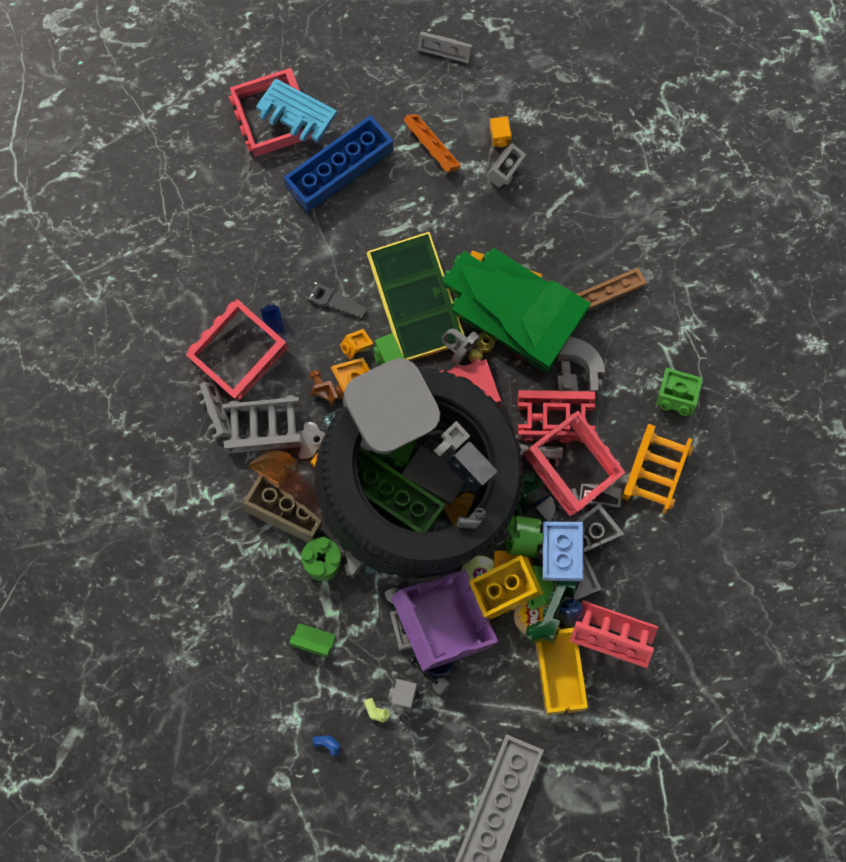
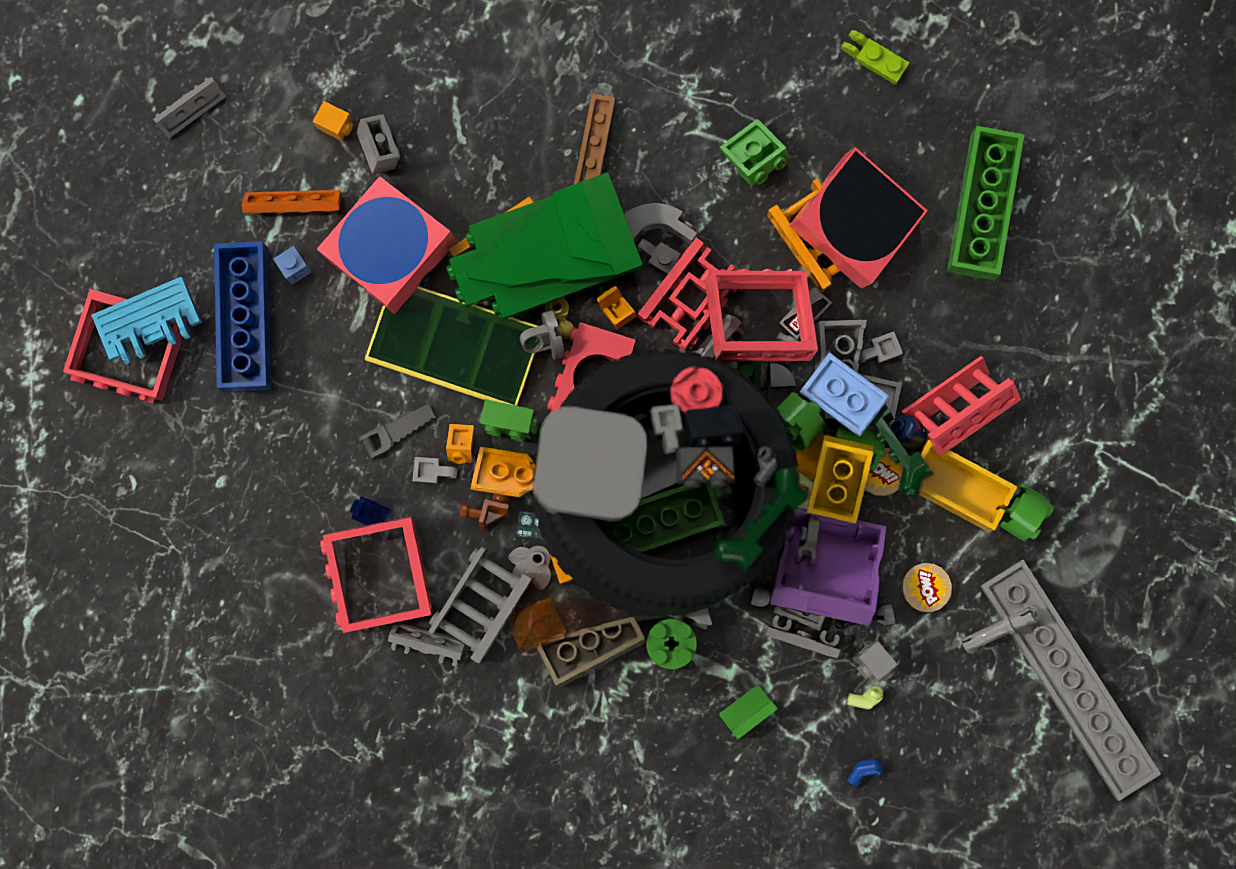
camera: 50 degrees left, 10 degrees up
(325, 337) = (429, 470): none -> light grey plate
(385, 641) = (803, 639): none -> light grey plate
(392, 170) = (292, 265): none -> medium blue brick
(407, 540) = (746, 550): none -> dark green plate
(442, 479) = (704, 466): none -> dark grey brick
(446, 213) = (387, 244): none -> blue tile
(454, 596) = (809, 537): none -> light grey plate
(478, 700) = (926, 587): none -> tile
(489, 442) = (696, 389): none -> coral tile
(492, 768) = (1008, 625): none -> light grey pin
(513, 376) = (616, 307): none -> light orange bracket
(575, 726) = (1025, 513): none -> bright green brick
(615, 561) = (883, 348): none -> light grey plate
(686, 481) = (858, 218): none -> black tile
(761, 558) = (985, 203): none -> bright green brick
(803, 425) = (876, 57): none -> lime hinge

